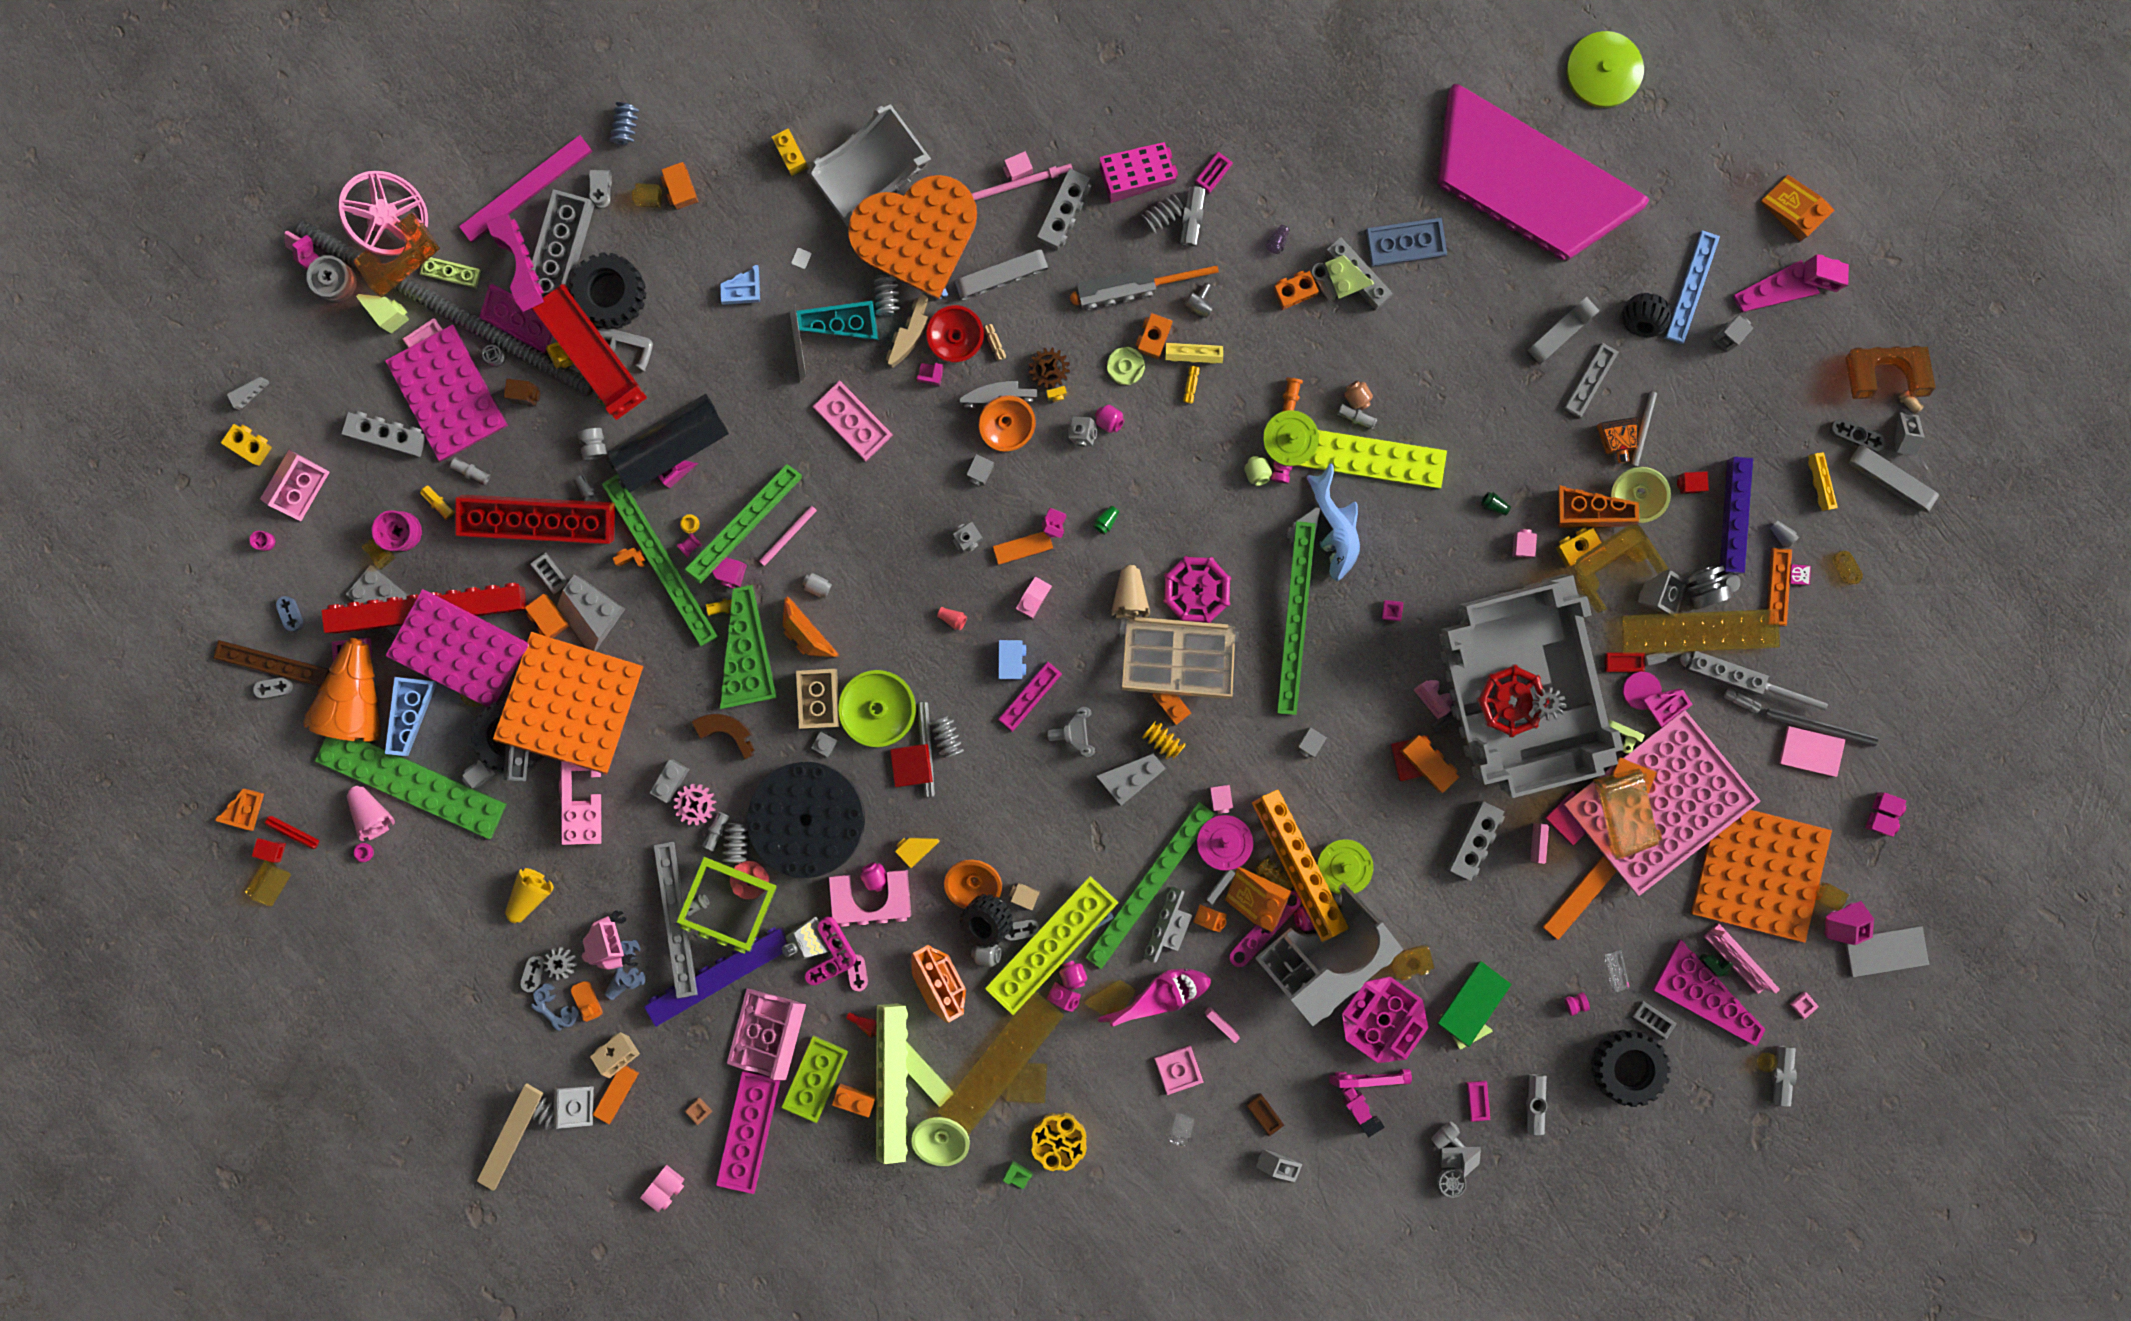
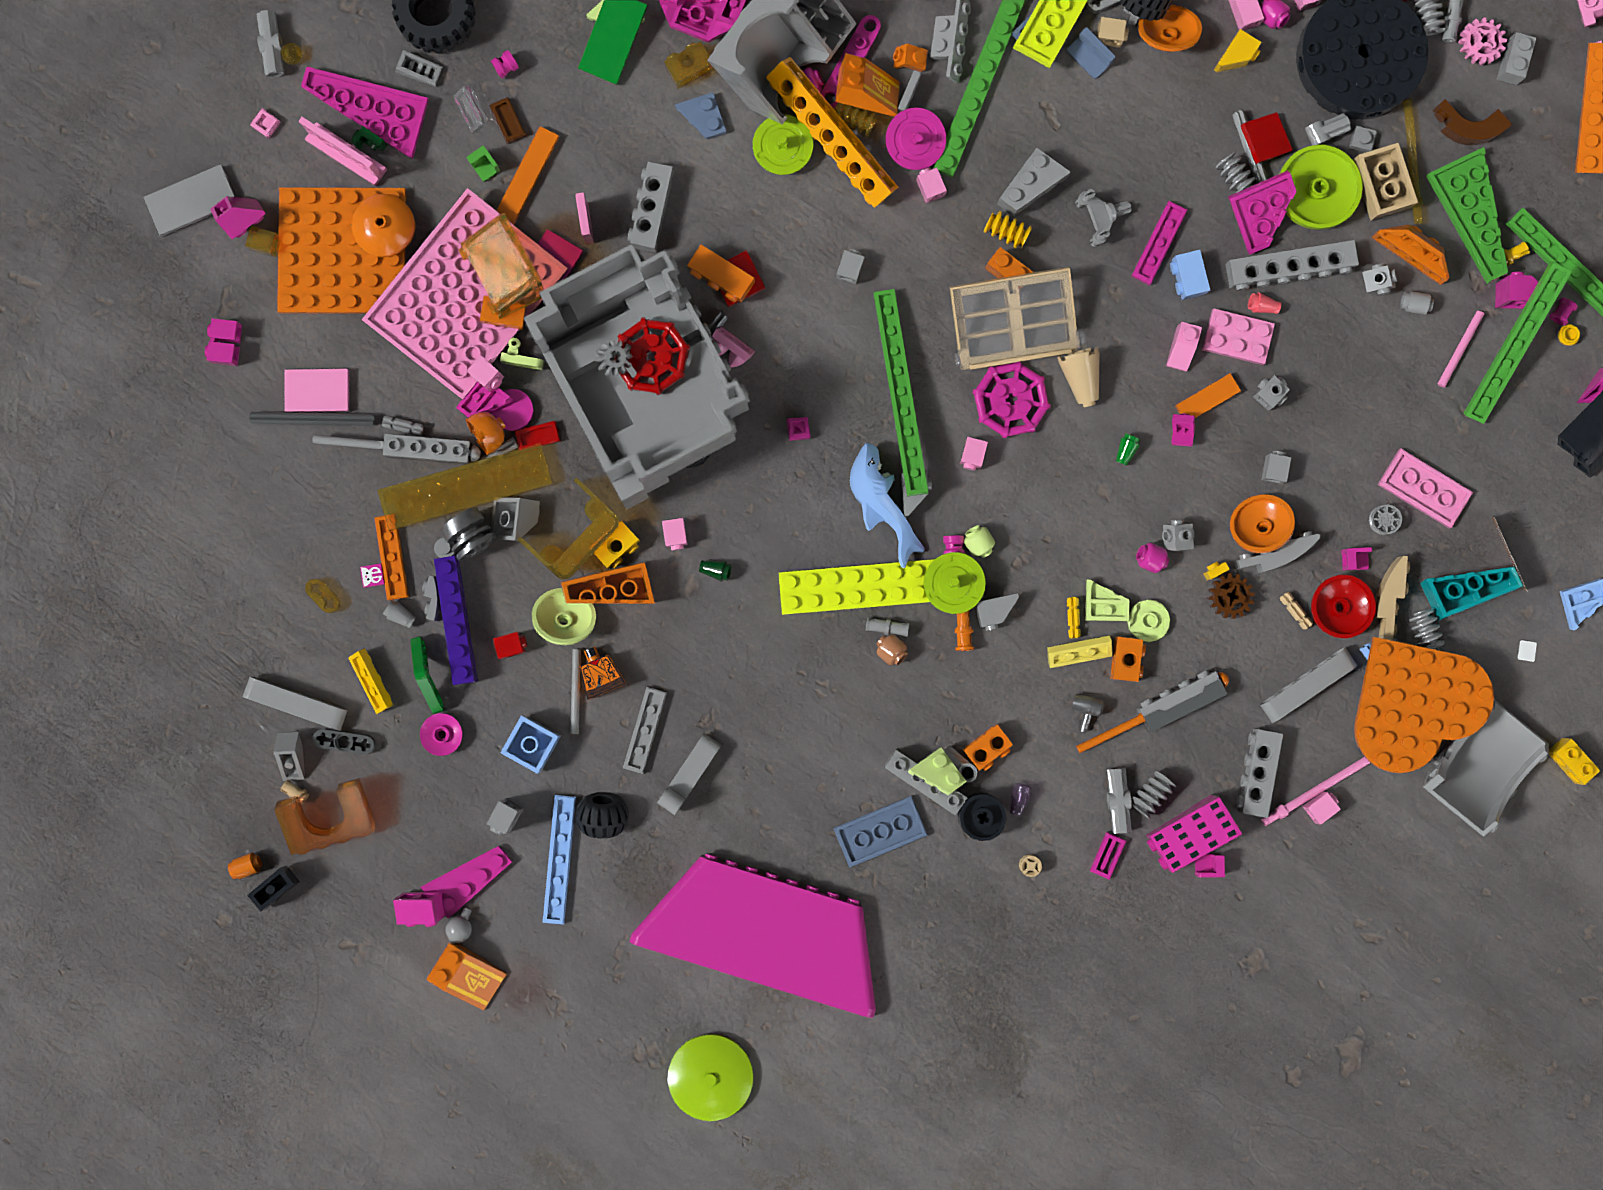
camera: 160 degrees right, 0 degrees up
(791, 675) = (1412, 158): none -> clear yellow bar
(845, 613) = (1373, 276): none -> light grey brick
(857, 759) = (1323, 132): none -> light grey piece
(869, 646) = (1343, 251): none -> light grey brick
(896, 401) = (1385, 519): none -> light grey wheel
(935, 699) = (1262, 209): none -> dark pink plate
(981, 595) = (1238, 336): none -> bright pink plate
(1048, 881) = (1091, 53): none -> sand blue panel
(1128, 140) = (1210, 866): none -> dark pink panel
(1161, 389) = (1105, 604): none -> yellowish green wing
(1244, 549) = (973, 453): none -> bright pink brick
(1261, 407) = (995, 610): none -> light grey slope
(1286, 177) = (1033, 868): none -> tan wheel
(1319, 220) = (994, 818): none -> black wheel
(1408, 913) = (703, 115): none -> sand blue wing
(1585, 953) = (507, 120): none -> reddish brown tile
(1616, 918) = (483, 163): none -> bright green panel
(1661, 724) = (485, 374): none -> bright pink brick
(1670, 675) = (487, 431): none -> orange cylinder
(1695, 391) = (530, 744): none -> light blue brick
(1708, 879) = (392, 235): none -> orange dish
(1754, 532) = (430, 590): none -> light grey slope
(1779, 474) = (422, 675): none -> green beam
(1780, 419) = (430, 734): none -> dark pink dish
(1794, 249) = (458, 928): none -> light grey piece
(1949, 322) = (273, 888): none -> black brick
(1969, 348) = (245, 866): none -> orange brick

